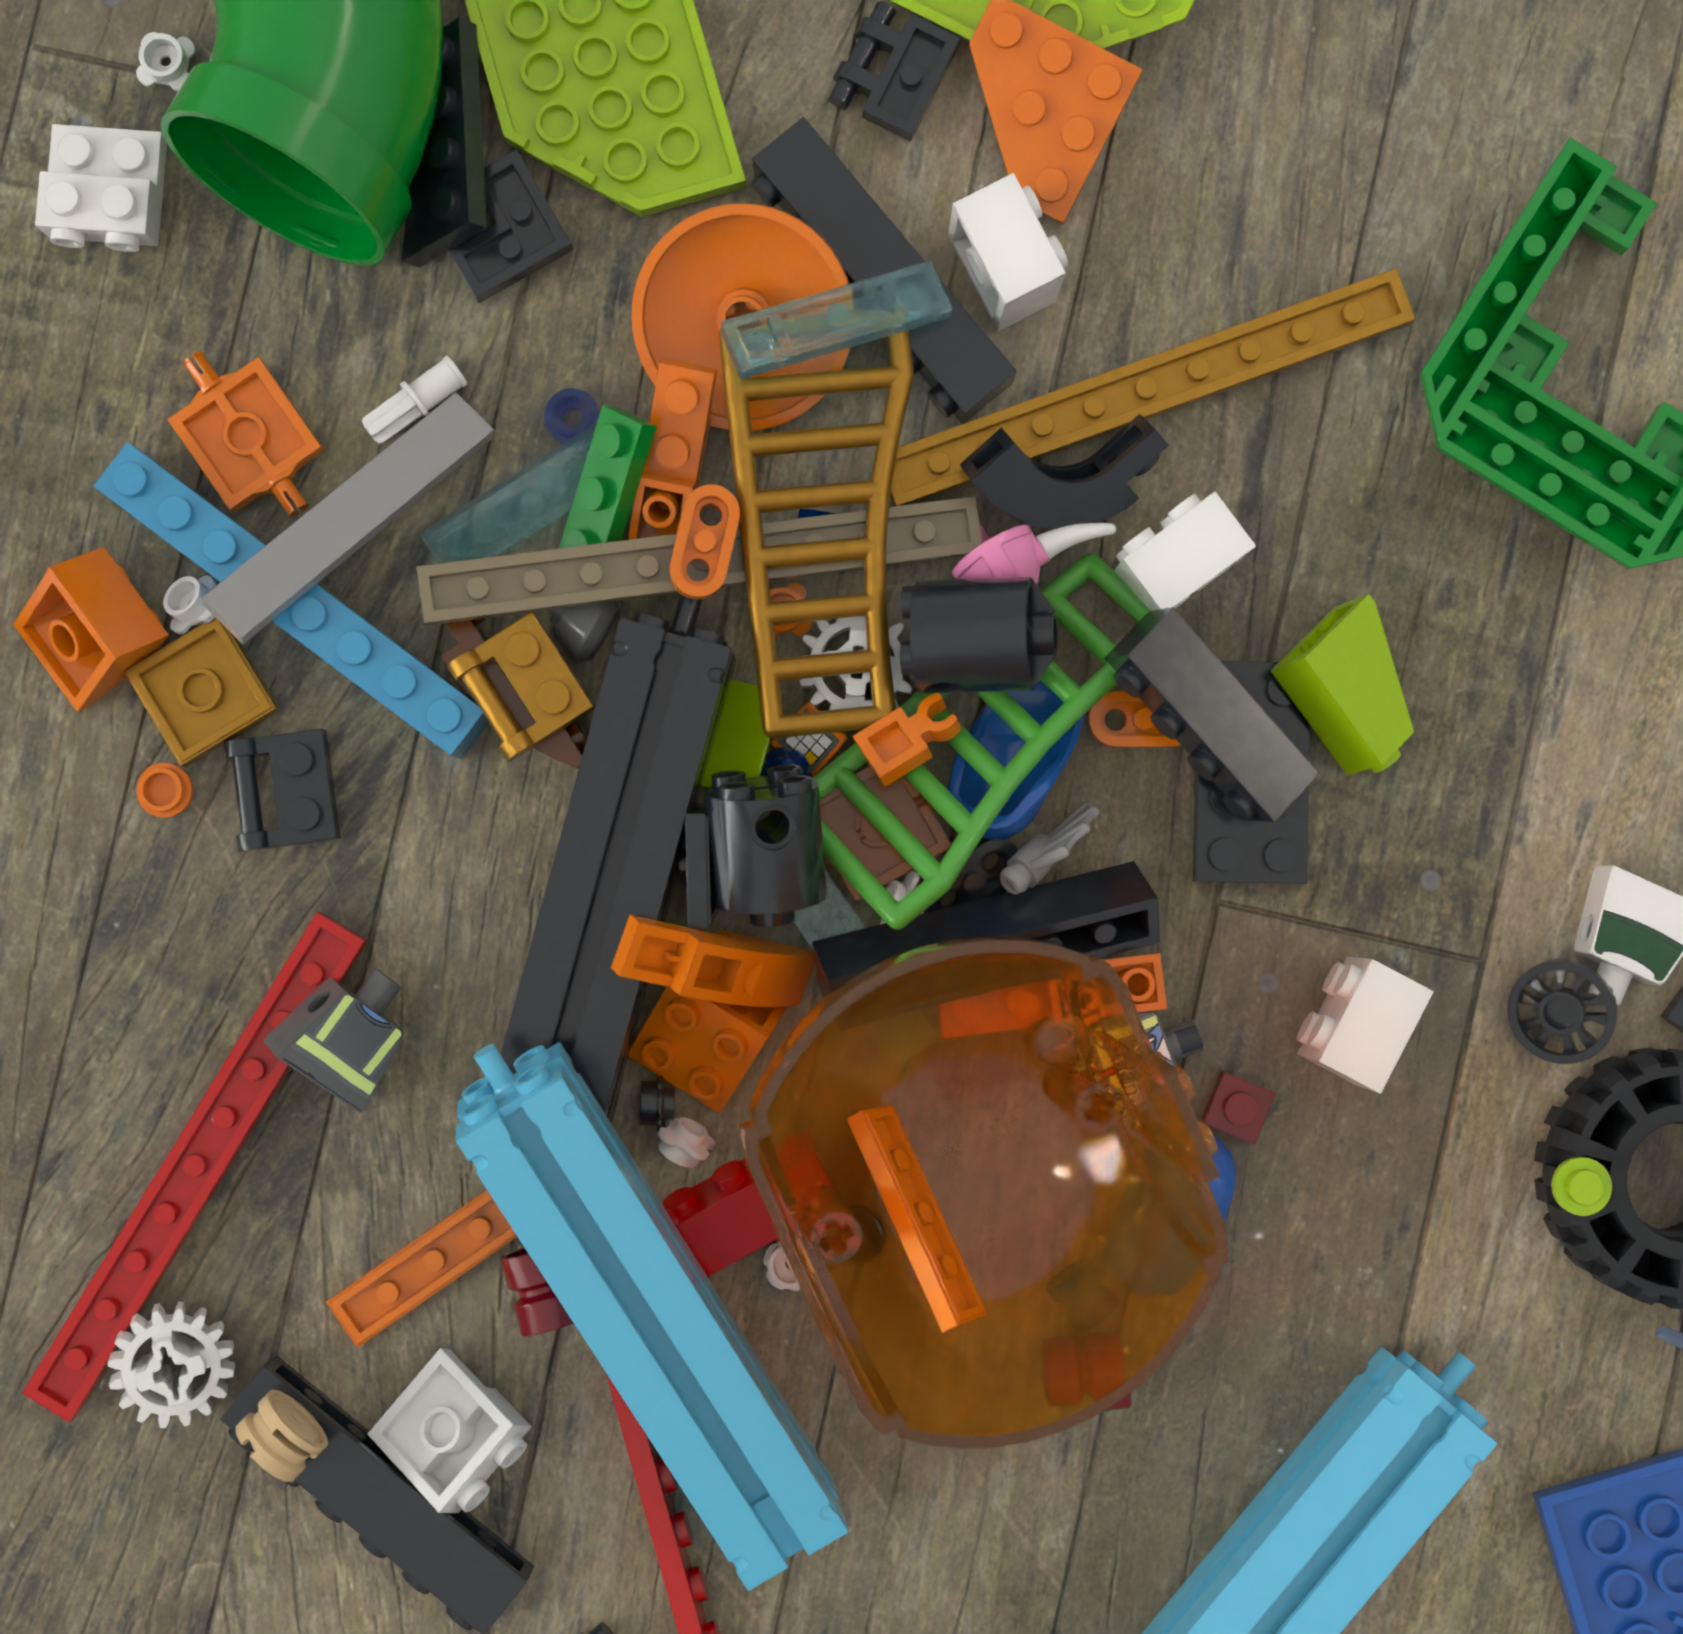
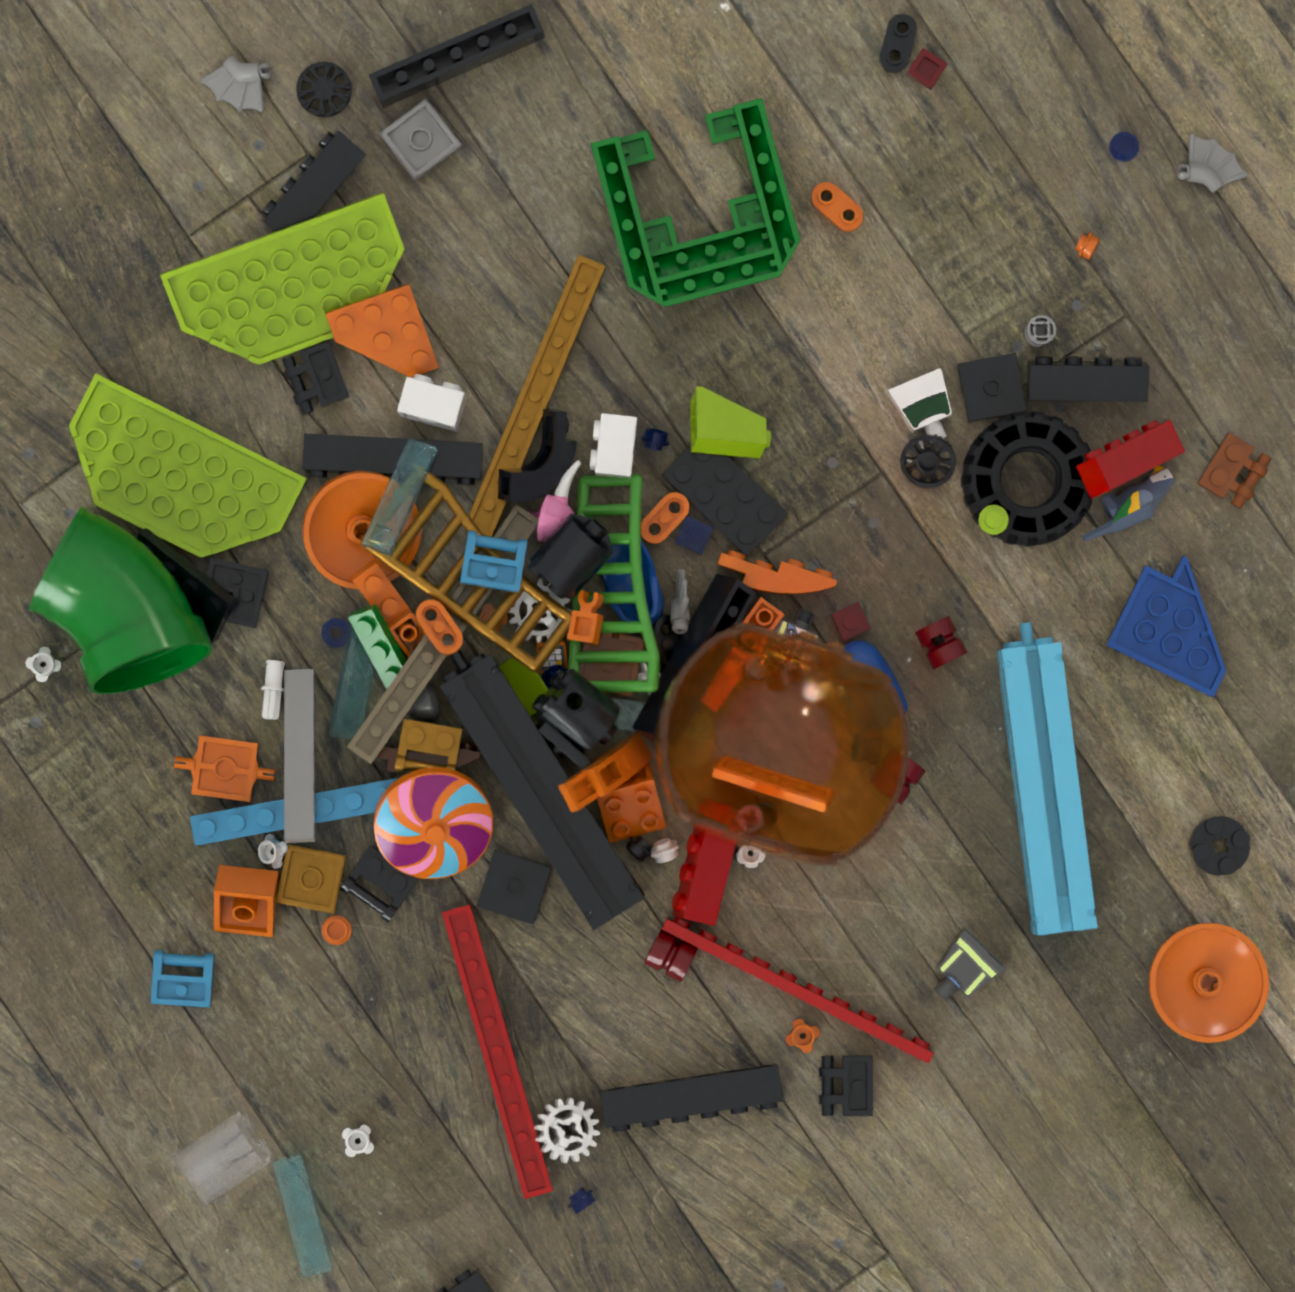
camera: 50 degrees left, 0 degrees up
(95, 1472) = (581, 1200): none -> clear blue plate
(102, 187) = (71, 735): white plate -> none
(282, 1435) = (634, 1108): tan wheel -> none
(341, 1037) = (500, 945): dark grey torso -> none
(421, 1269) = (620, 992): orange tile -> none
(426, 785) = (433, 823): none -> dish
(446, 978) = (513, 887): none -> black plate
(450, 1434) = (694, 1045): white plate -> none
(596, 1584) = (794, 1039): none -> orange plate
(647, 1310) = (715, 916): medium azure brick -> none
(850, 541) = (493, 571): none -> dark azure plate
(1156, 782) = (694, 535): none -> clear blue plate
(1210, 716) = (686, 494): brick -> none
(1217, 968) = (788, 580): none -> orange slope
(1239, 606) = (655, 439): none -> clear blue plate
(1318, 1280) = (945, 652): none -> dark red wheel
(1363, 1022) = (859, 543): white brick -> none

